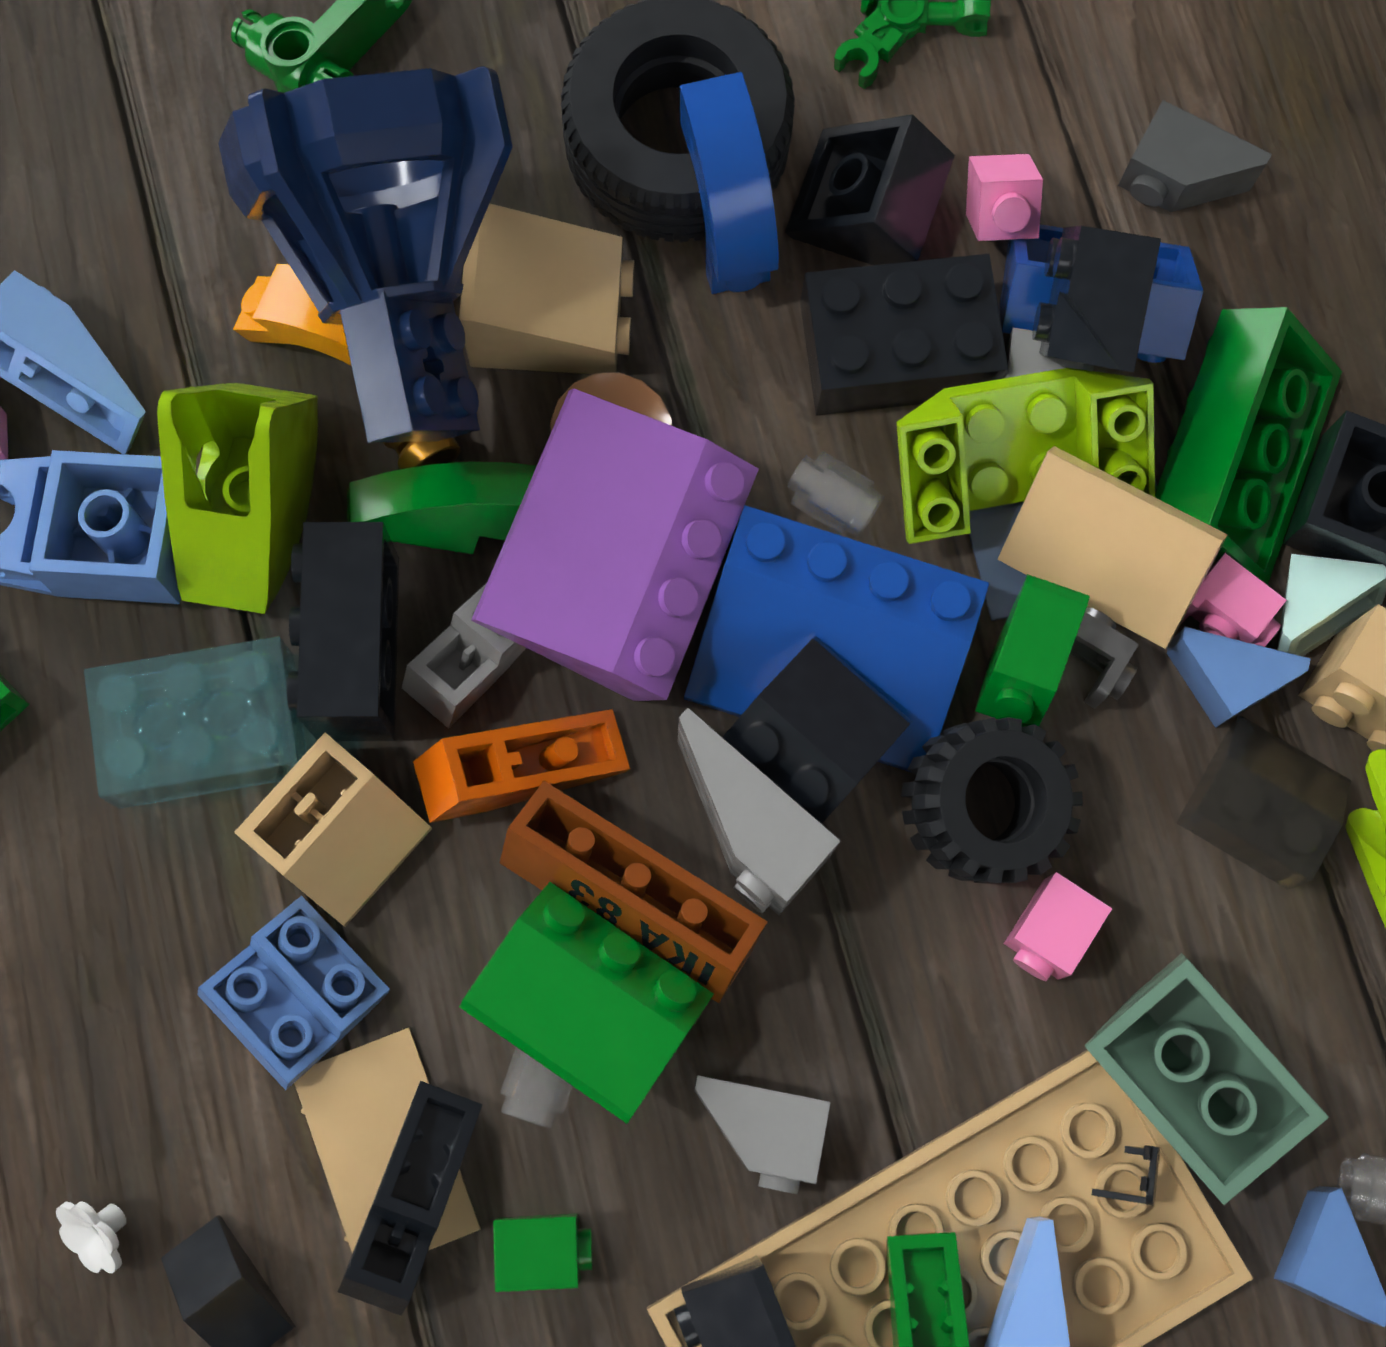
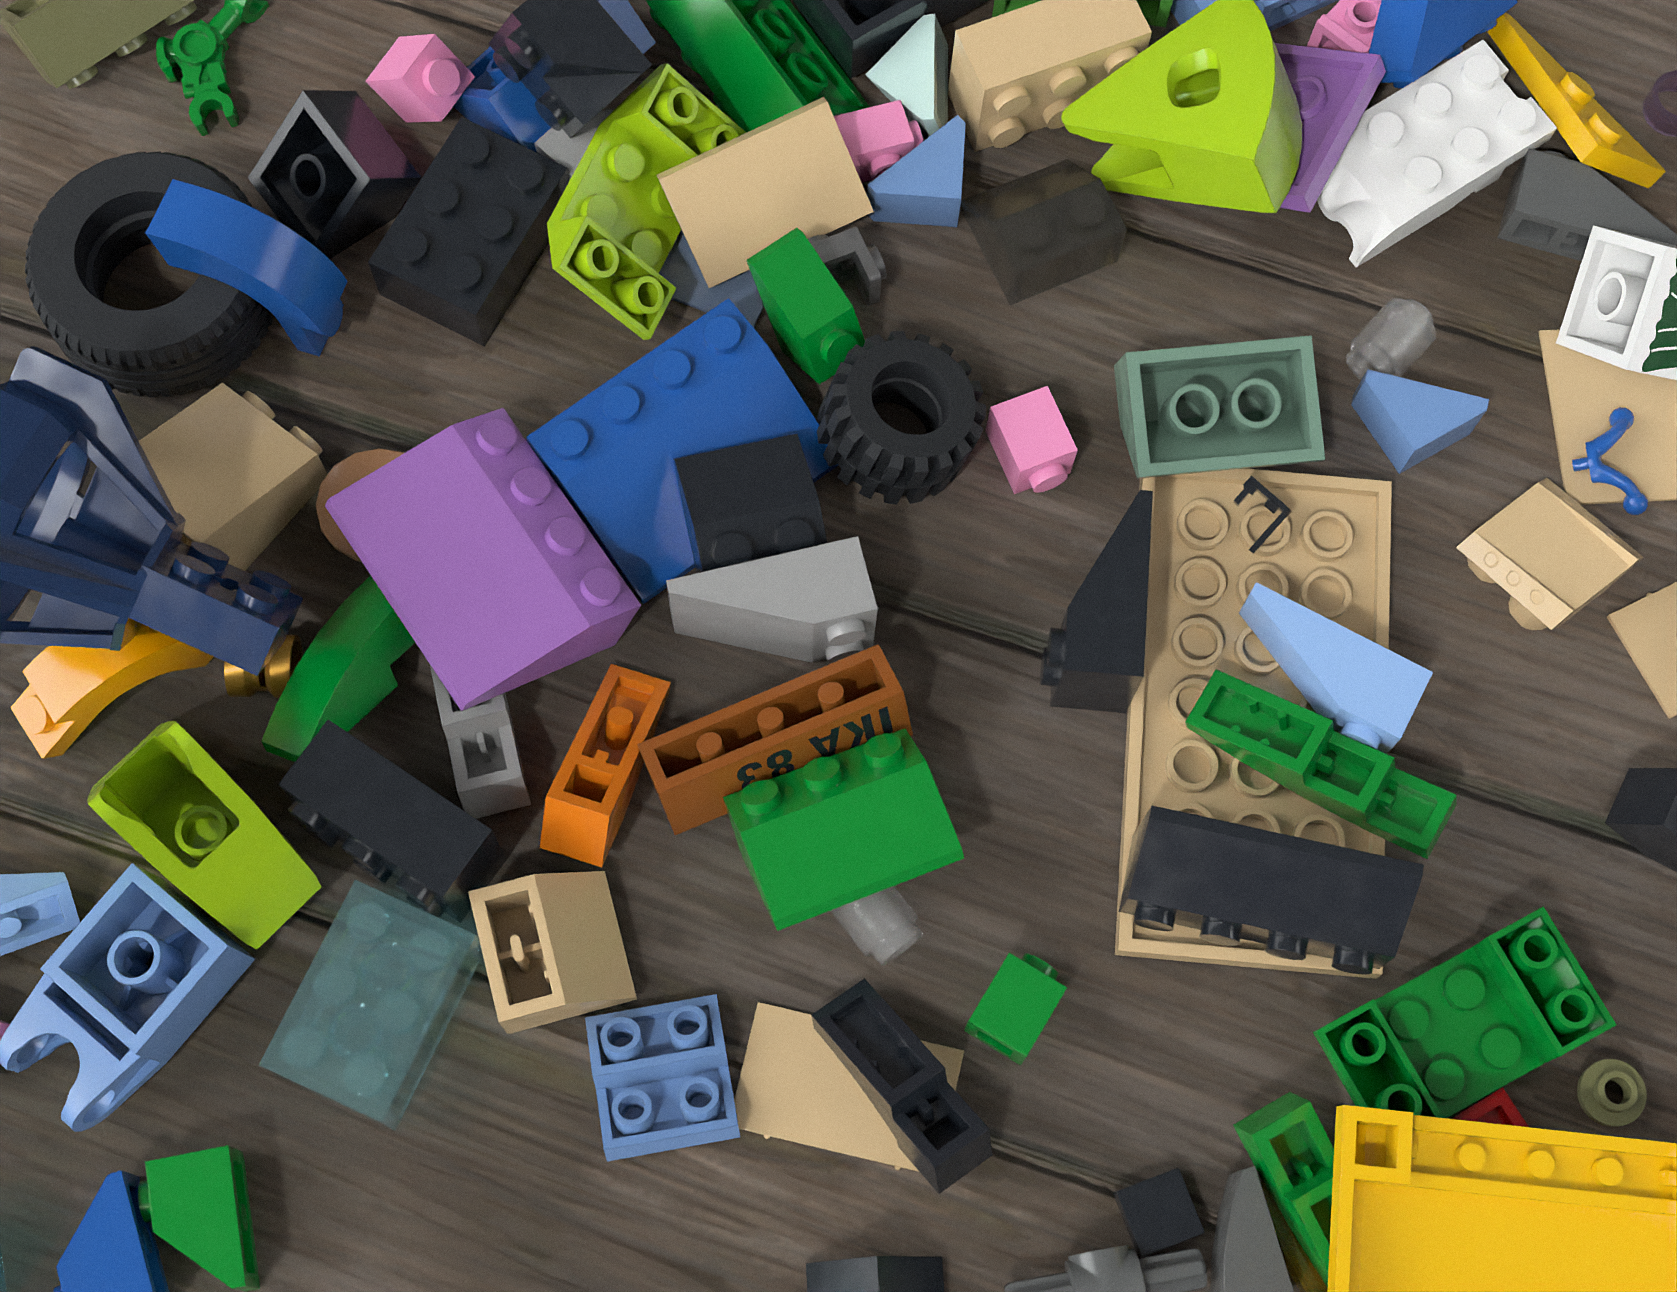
camera: 55 degrees left, 5 degrees down
(768, 1130) = (1038, 763): light grey slope -> none
(834, 494) = (564, 370): clear brick -> none
(917, 1108) = (1100, 647): none -> black slope

